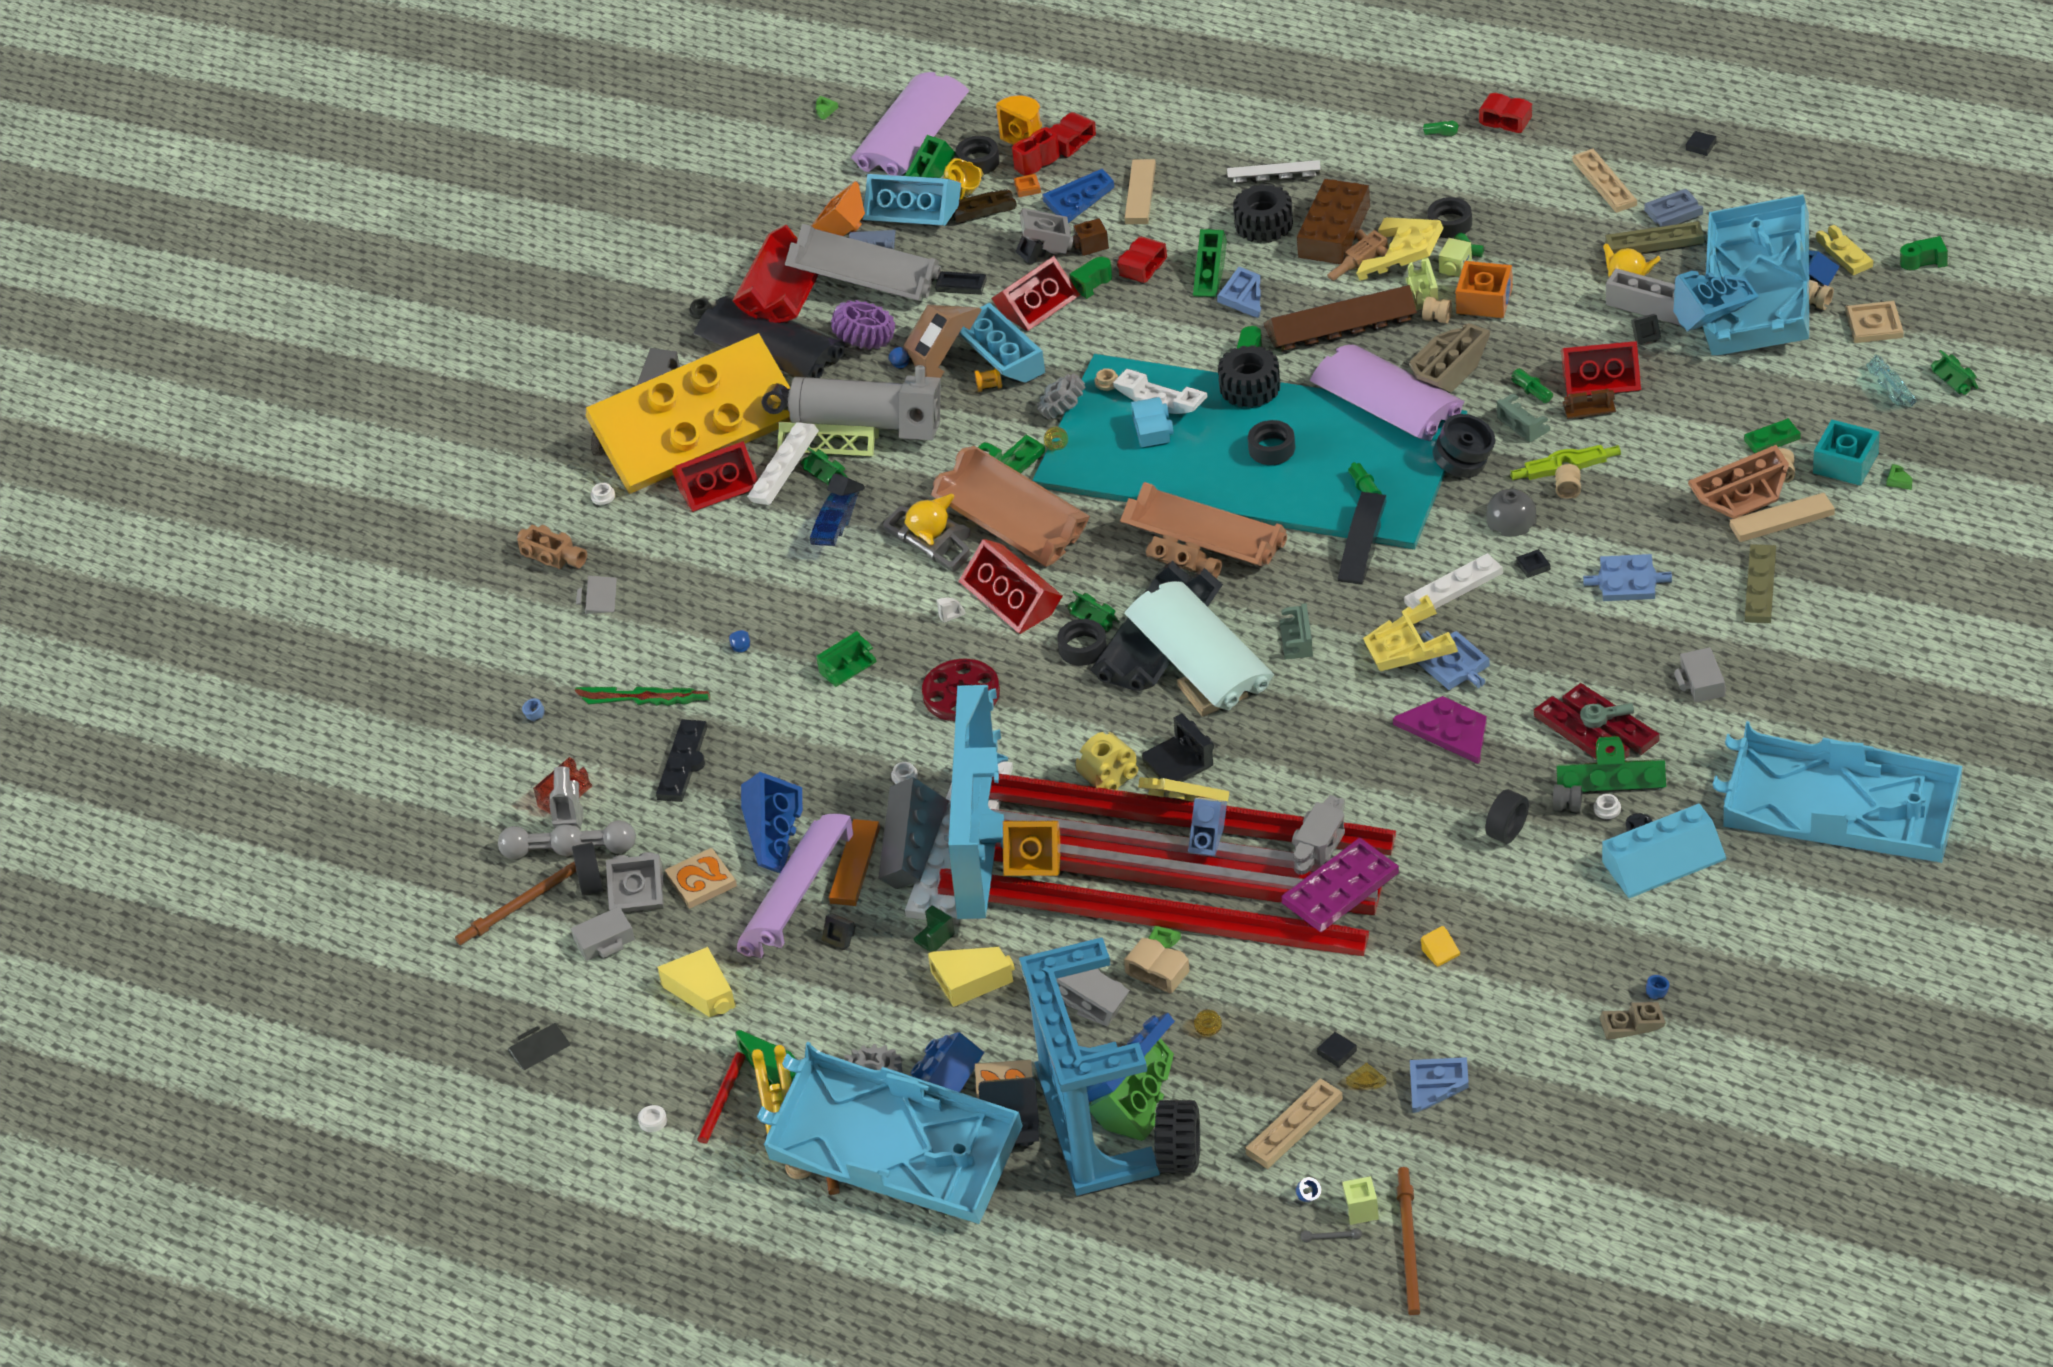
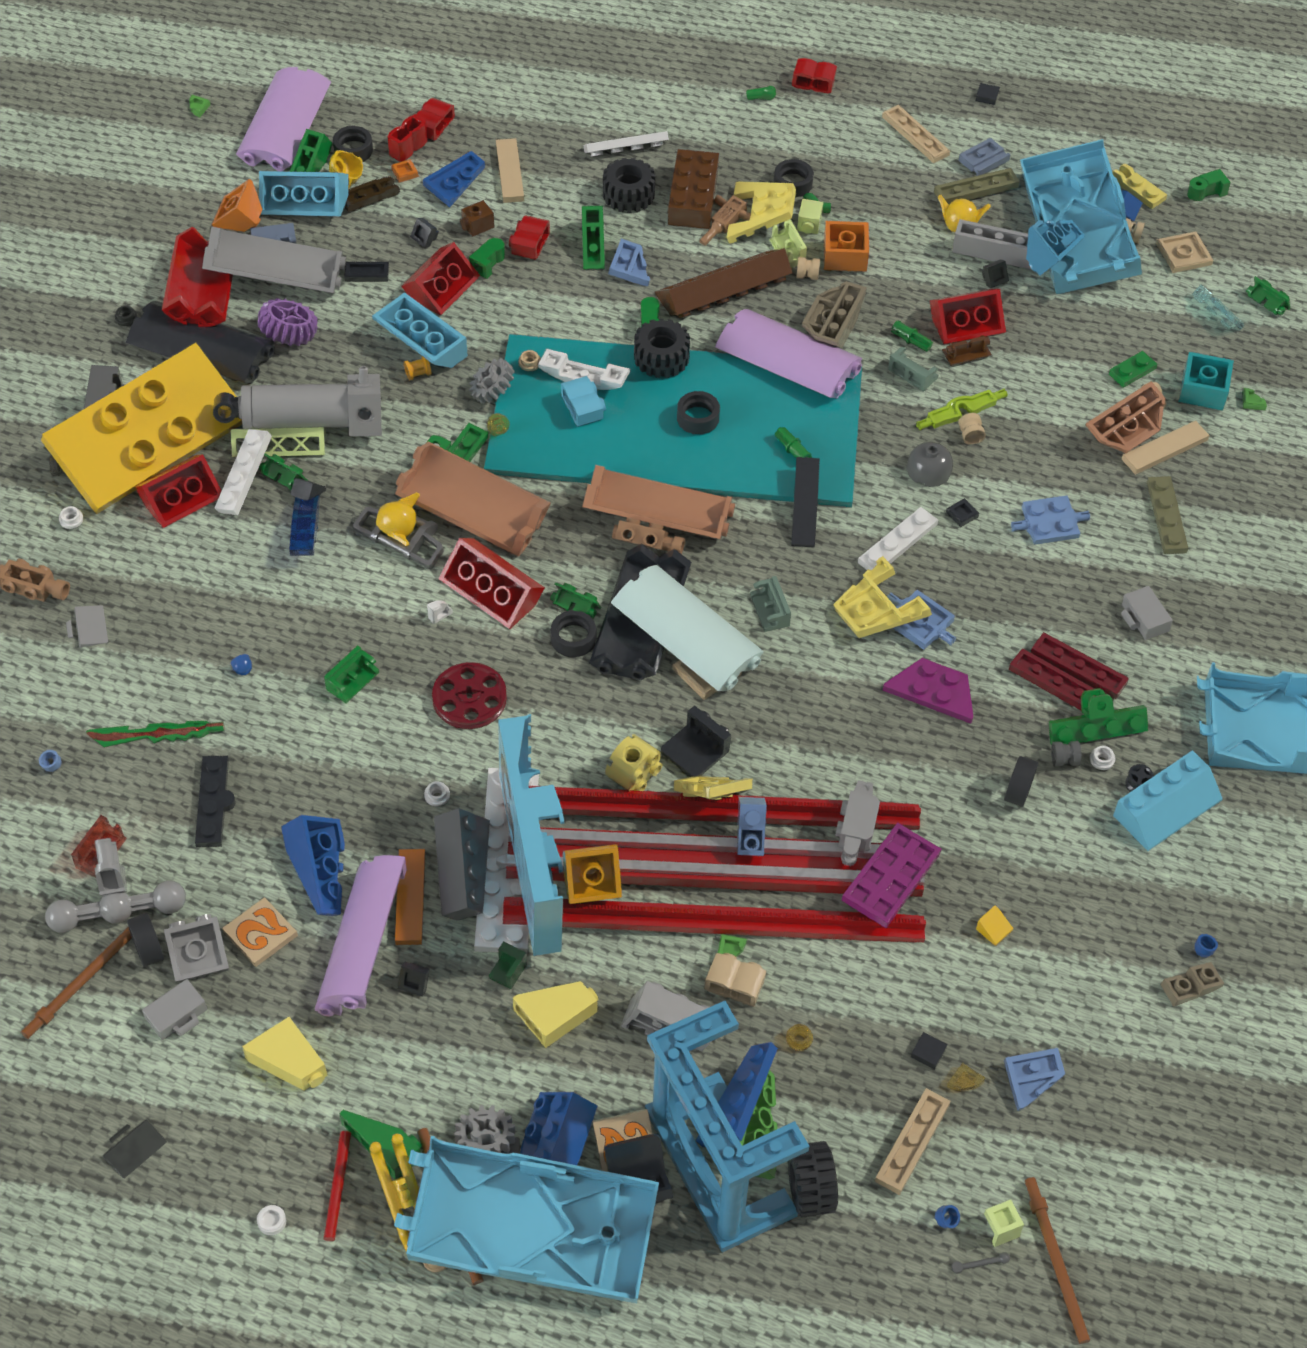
camera: 20 degrees left, 10 degrees up
(899, 357) = (328, 352): blue hinge -> none
(936, 333) = (360, 329): medium nougat wedge -> none
(1018, 118) = (385, 108): light orange brick -> none
(1047, 227) = (437, 213): light grey plate -> none
(1464, 445) = (874, 402): black wheel -> none
(1596, 715) = (1069, 666): sand green plate -> none

